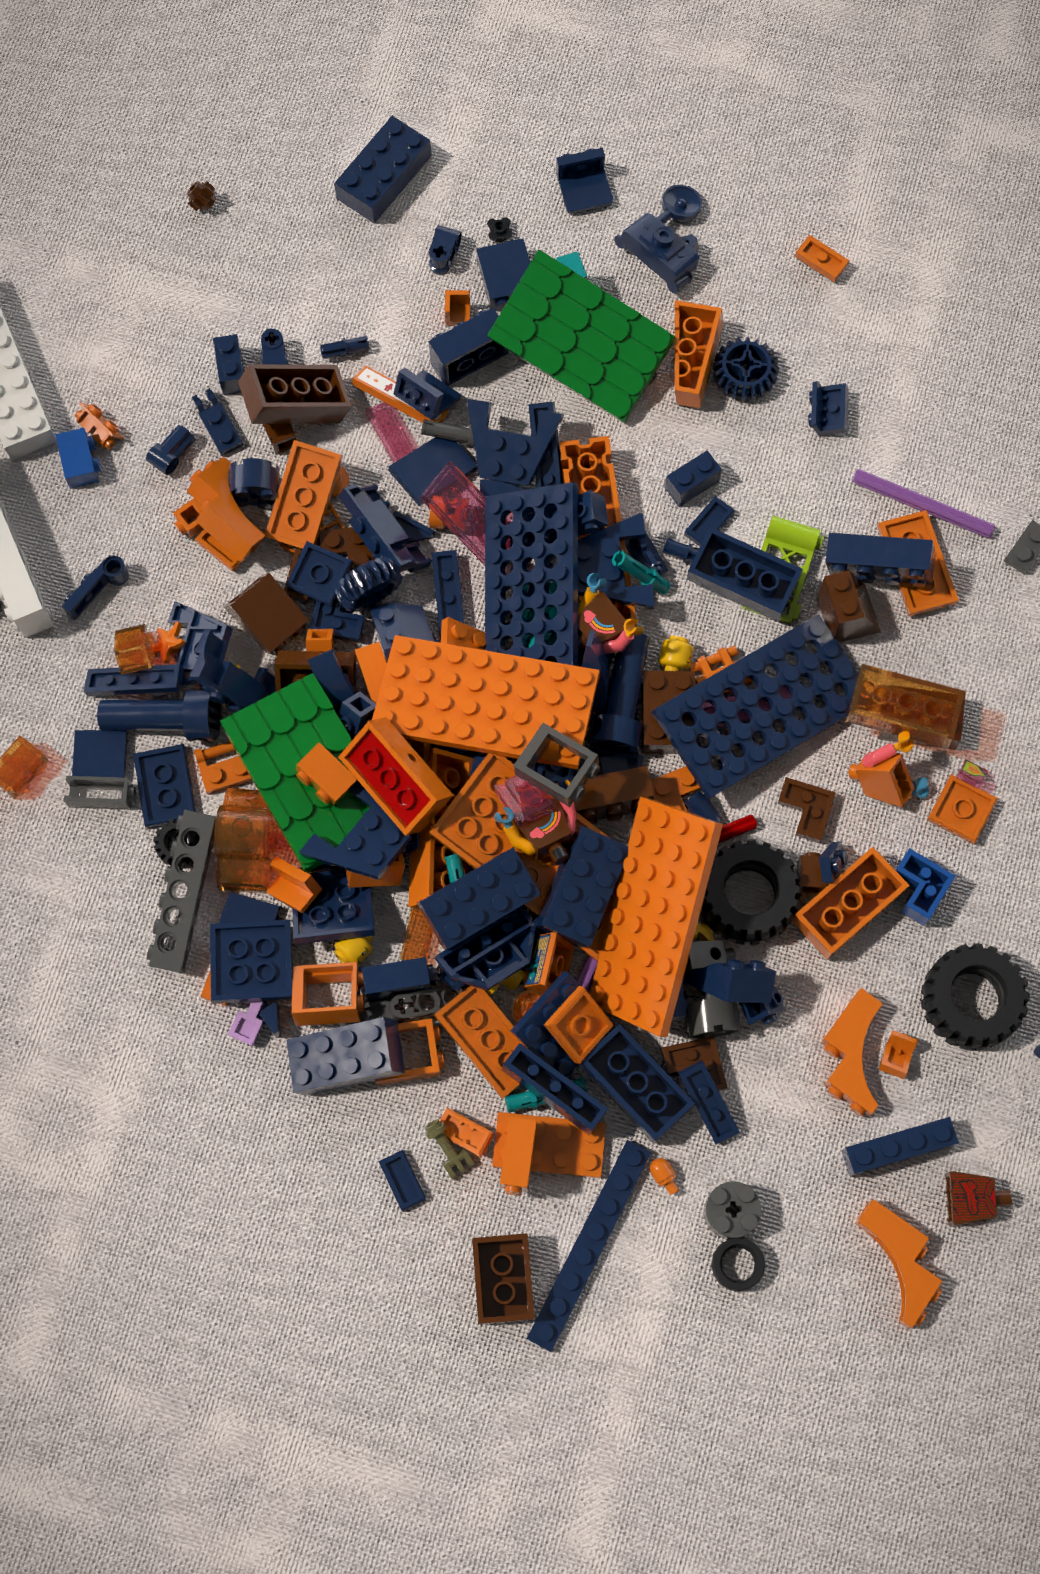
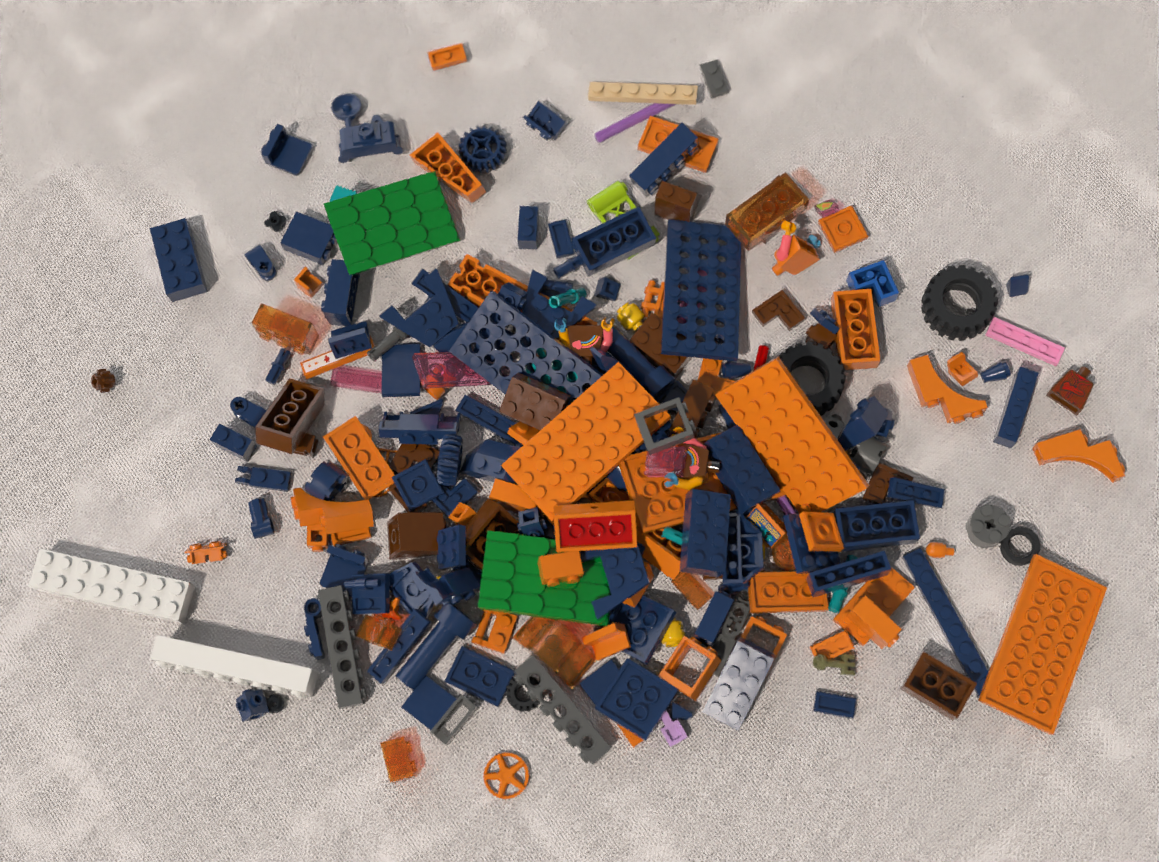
camera: 50 degrees left, 0 degrees up
(77, 457) = (219, 580): blue brick -> none
(78, 887) = (506, 775): none -> orange wheel
(94, 612) = (328, 598): none -> dark grey brick
(168, 610) = (370, 593): none -> dark blue plate
(176, 570) = (342, 566): none -> dark blue bracket
(272, 652) = (451, 547): none -> dark blue plate
(331, 677) = (497, 521): dark blue slope -> none
(385, 323) = (285, 329): none -> clear orange brick
(493, 617) = (533, 401): none -> reddish brown brick
(640, 1366) = (1042, 644): none -> orange plate
(690, 610) = (607, 289): none -> dark blue slope
(926, 1098) = (995, 373): none -> dark blue cone
(947, 484) = (643, 93): none -> tan plate
(989, 1104) = (1025, 341): none -> bright pink plate

